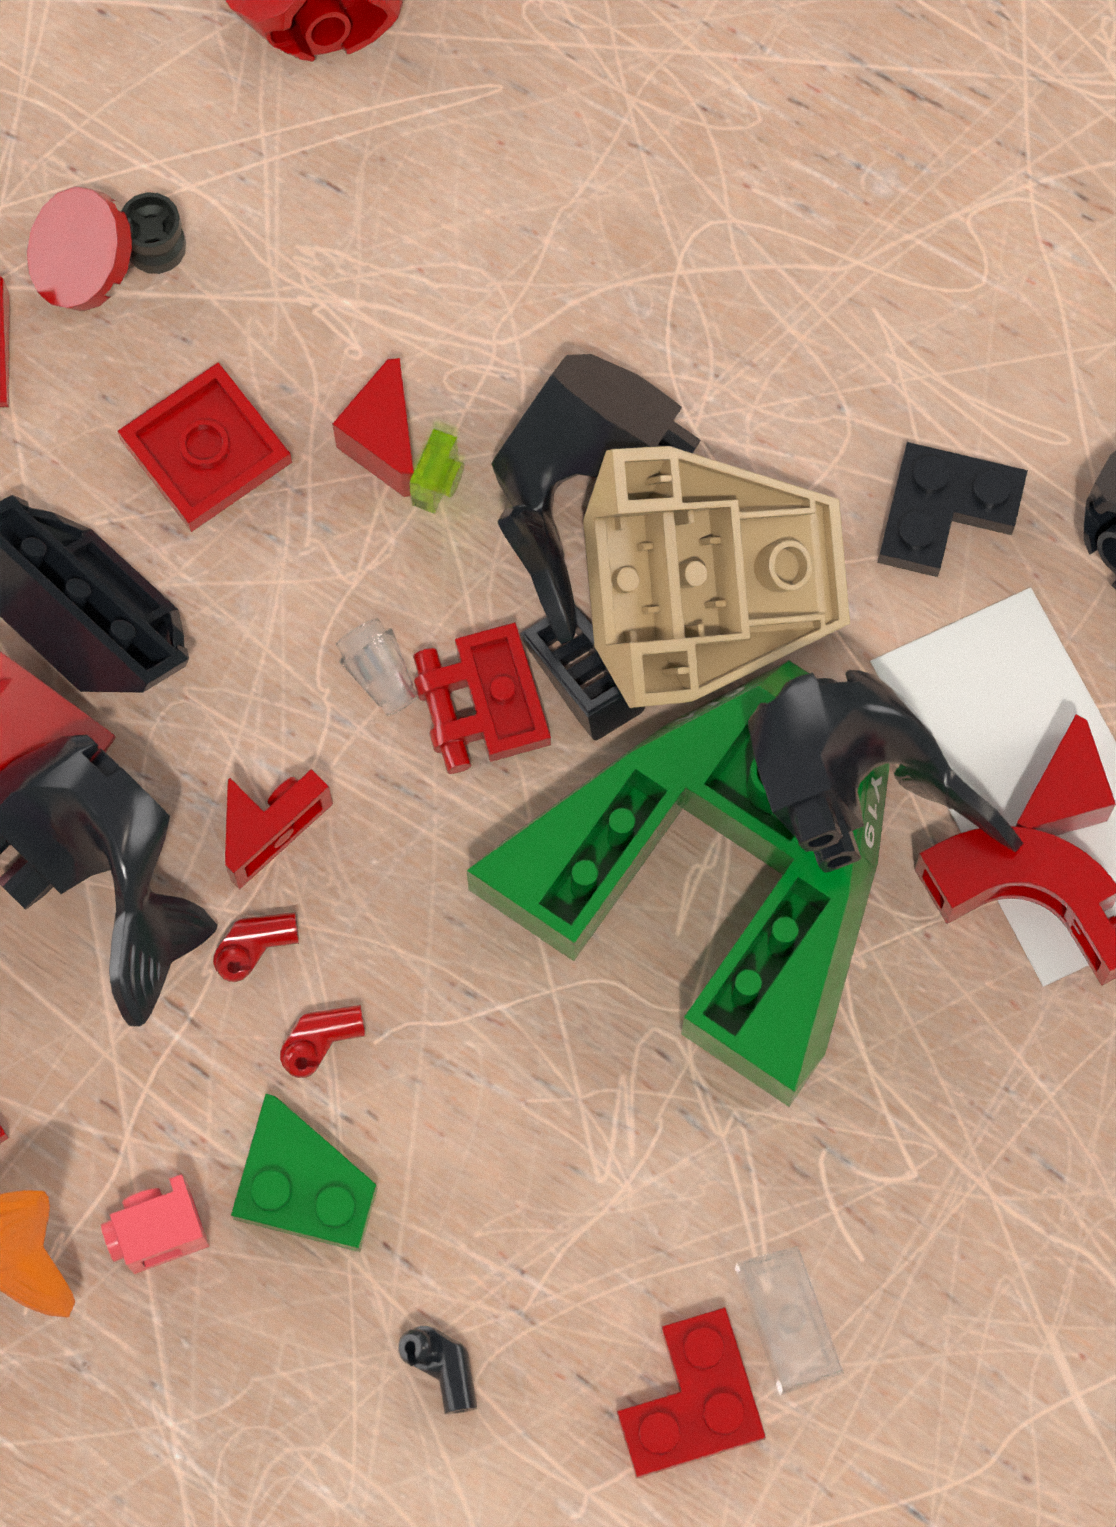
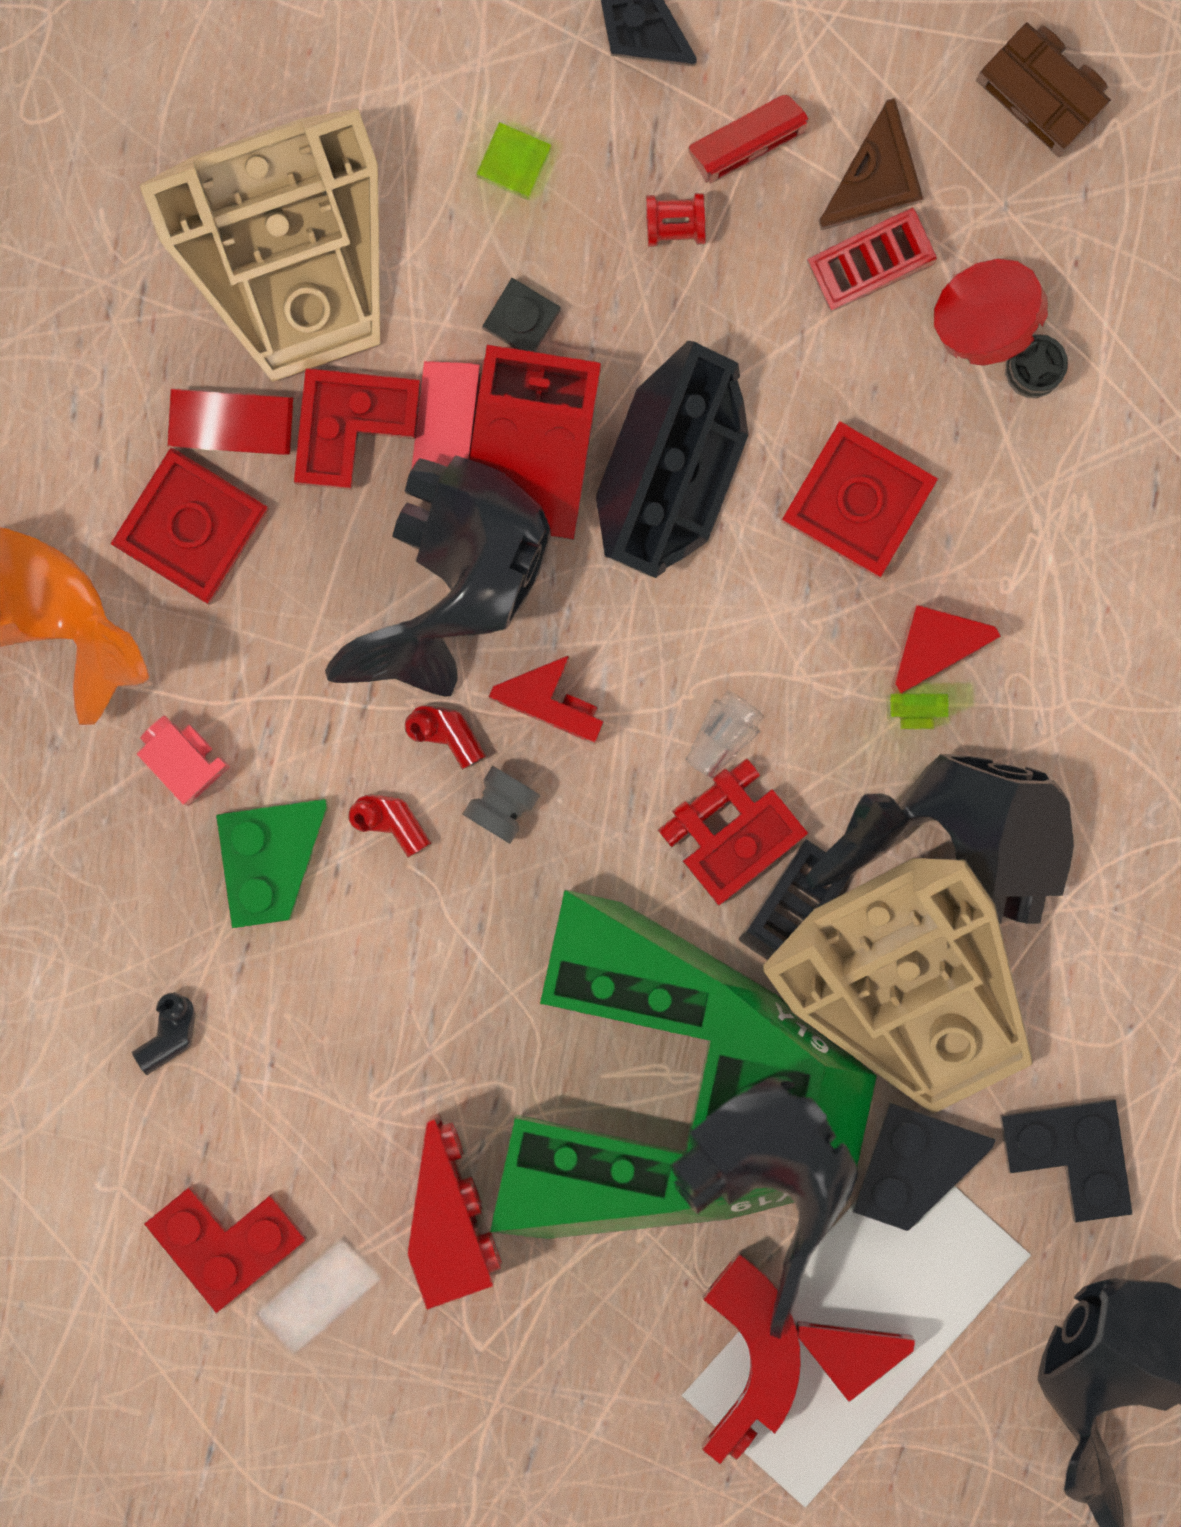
camera: 70 degrees right, 15 degrees up
(349, 910) = (501, 804): none -> dark grey wheel
(772, 1144) = (445, 1238): none -> red slope
(898, 647) = (915, 1166): none -> black wing

